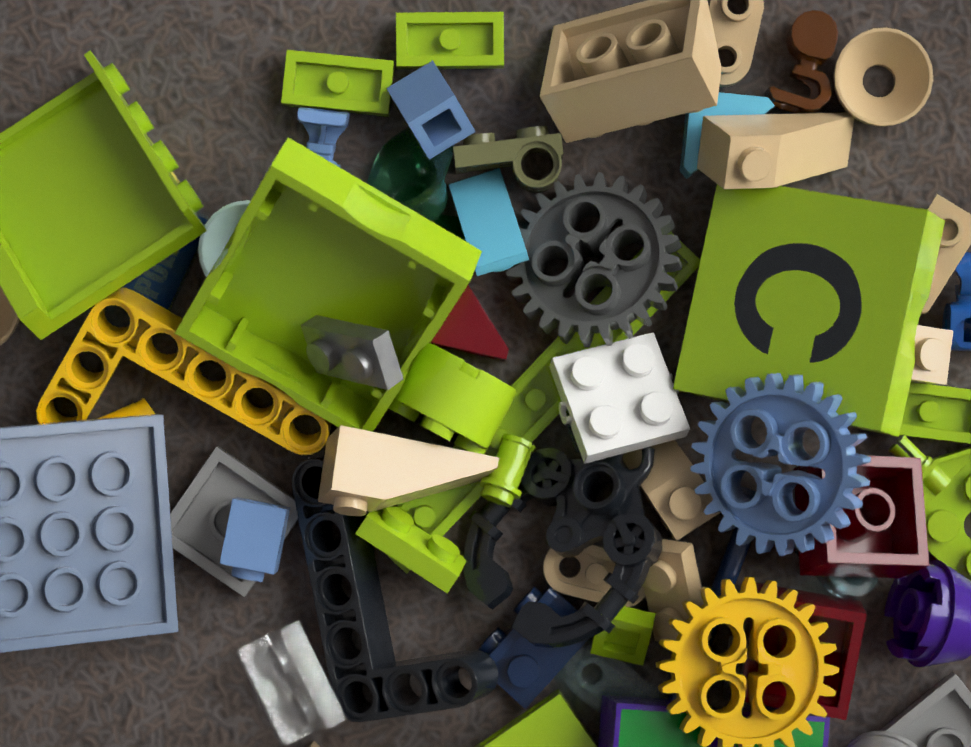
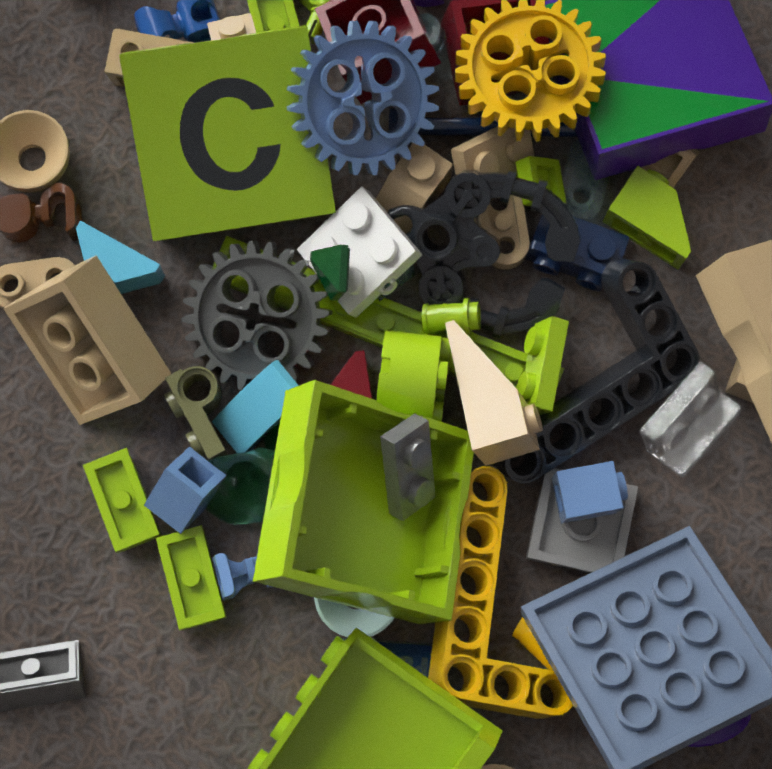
camera: 110 degrees left, 10 degrees down
(601, 357) = (332, 269): none -> dark green slope
(773, 148) = (116, 210): tan slope -> none

